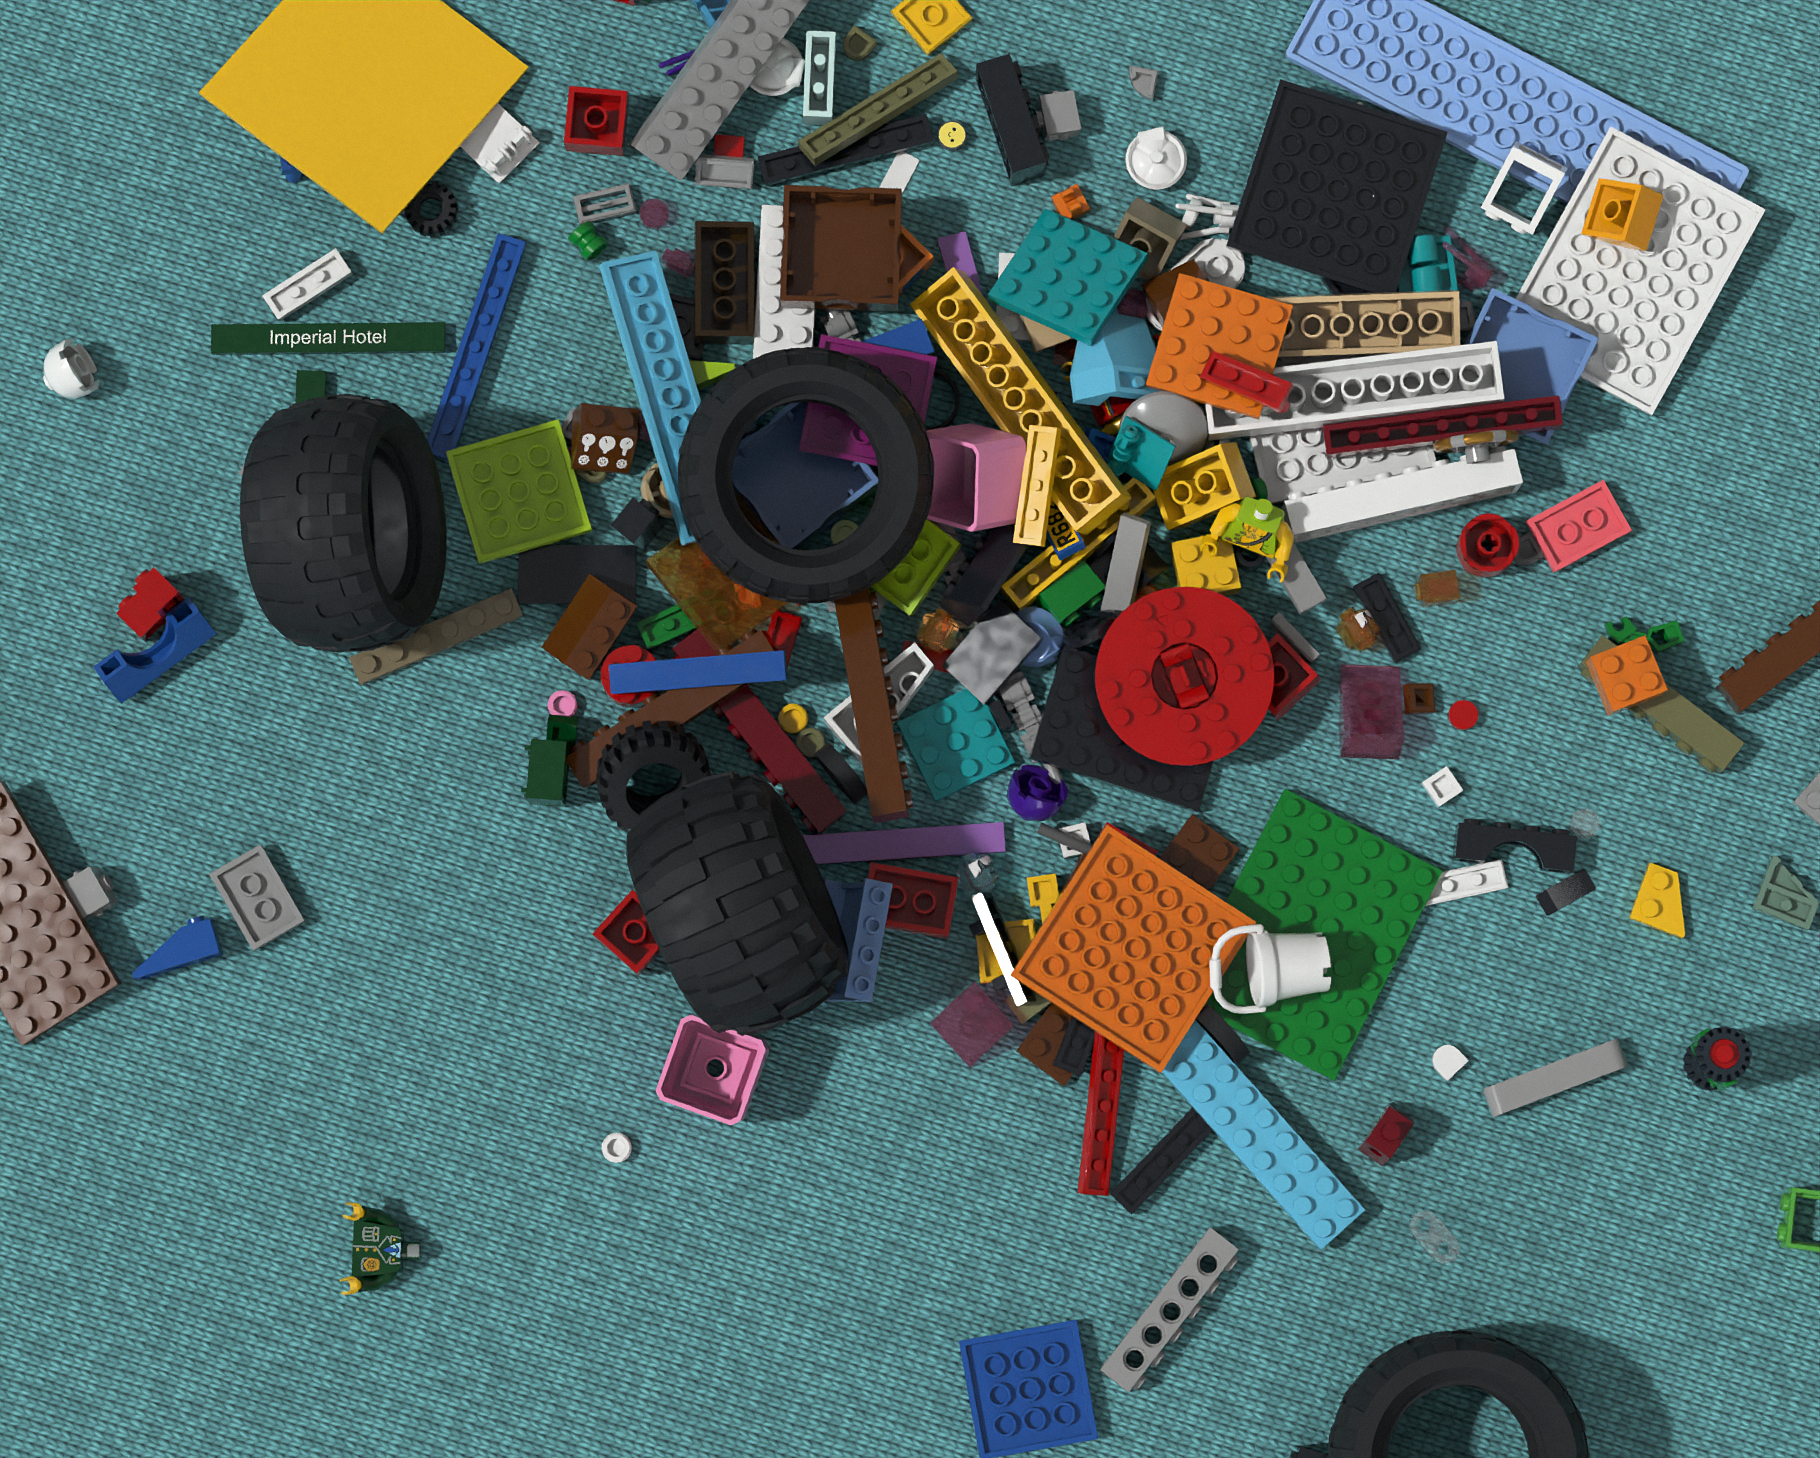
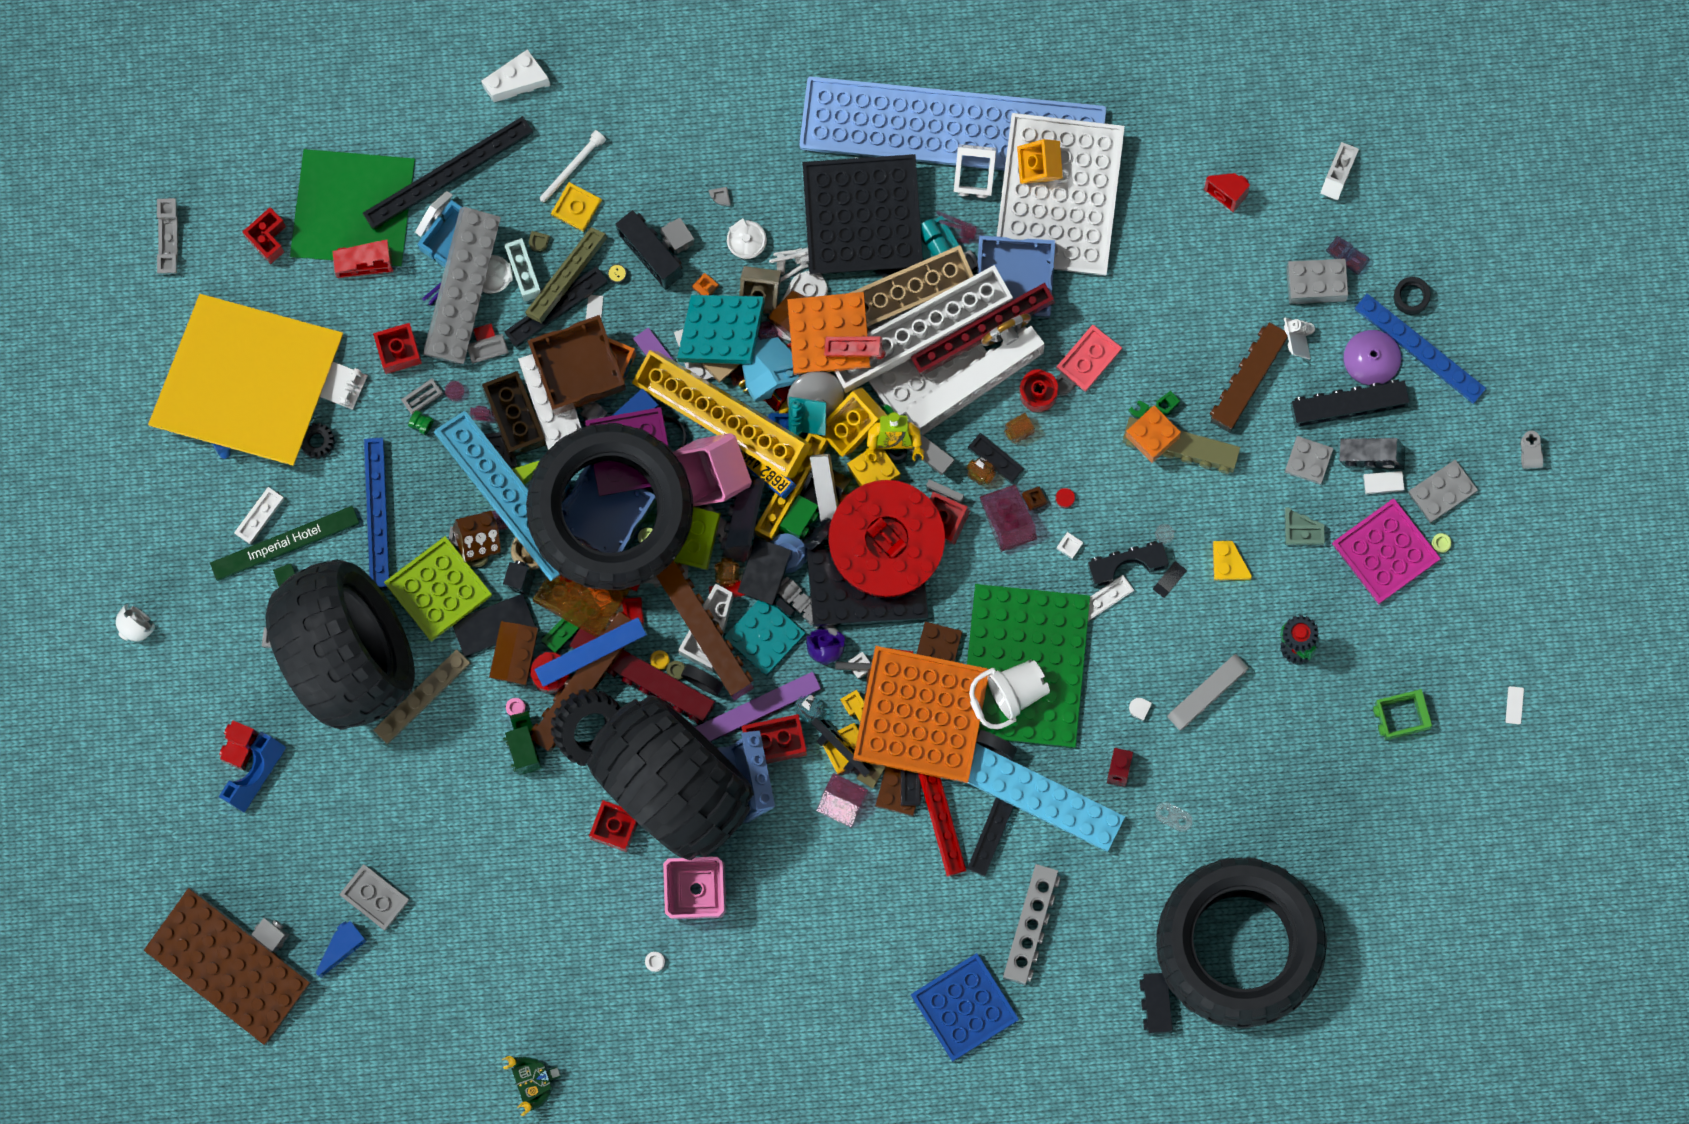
camera: 15 degrees left, 5 degrees down
(1037, 485) = (752, 459): yellow plate -> none

